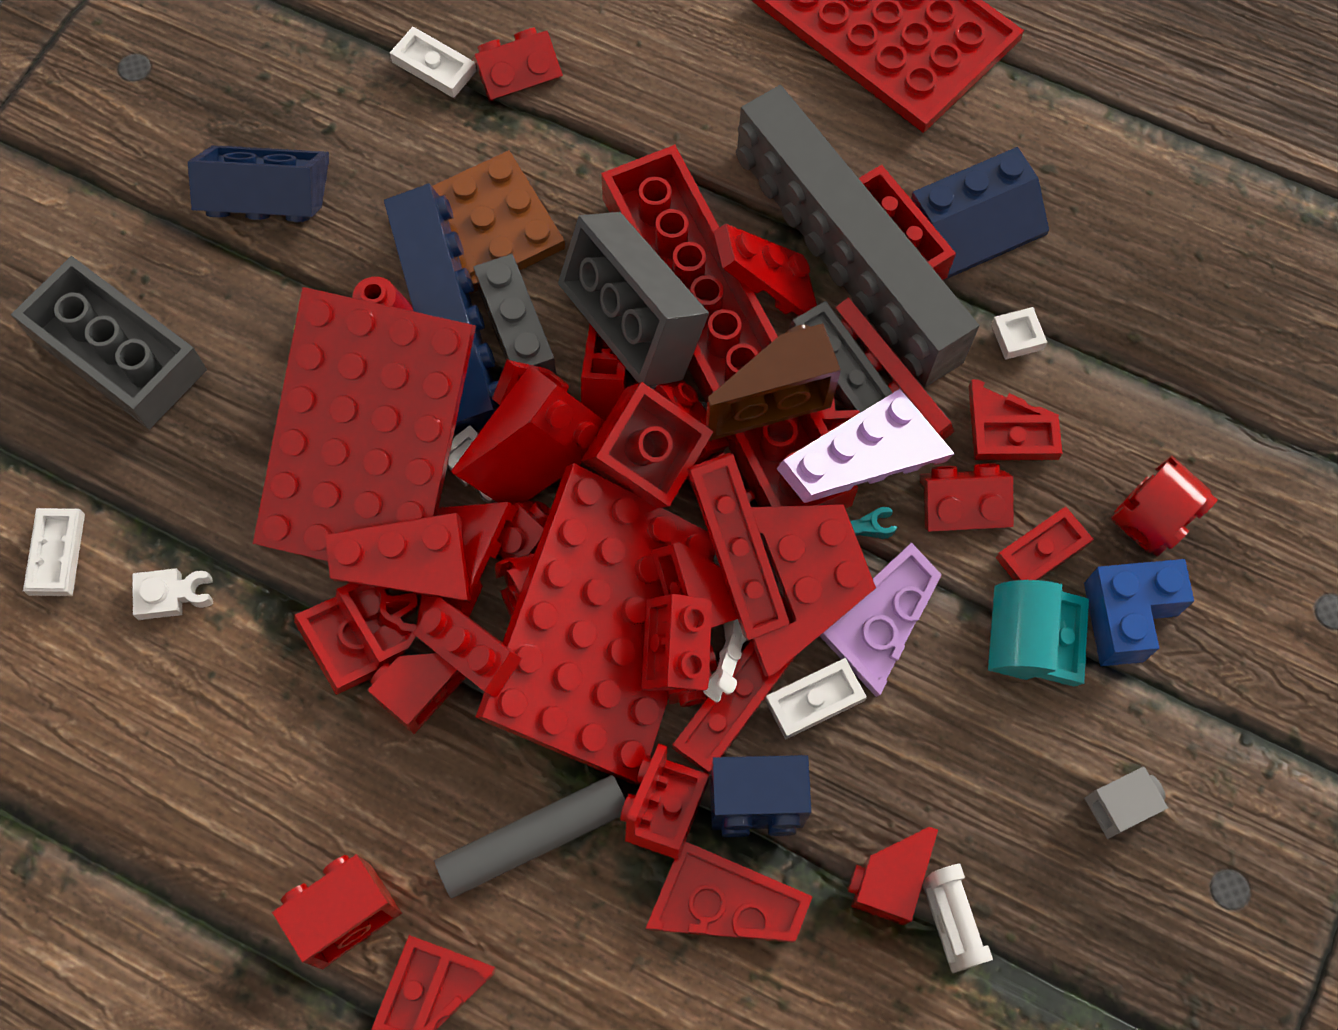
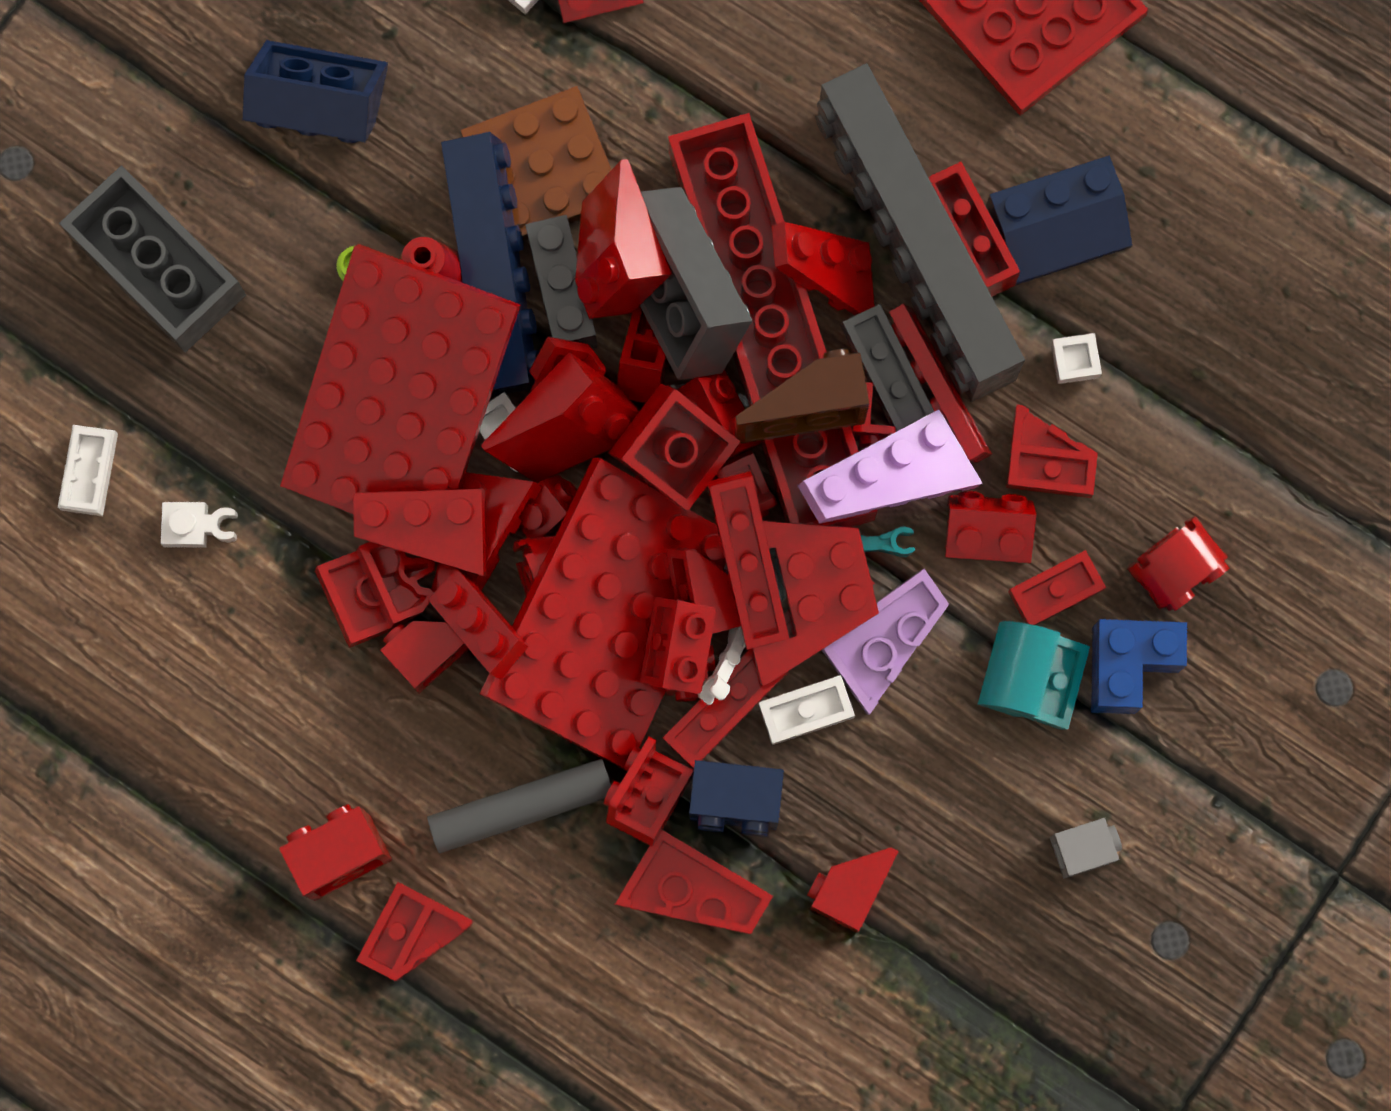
camera: 10 degrees right, 10 degrees up
(567, 272) = (617, 247): none -> red slope
(955, 919) = (899, 933): white plate -> none

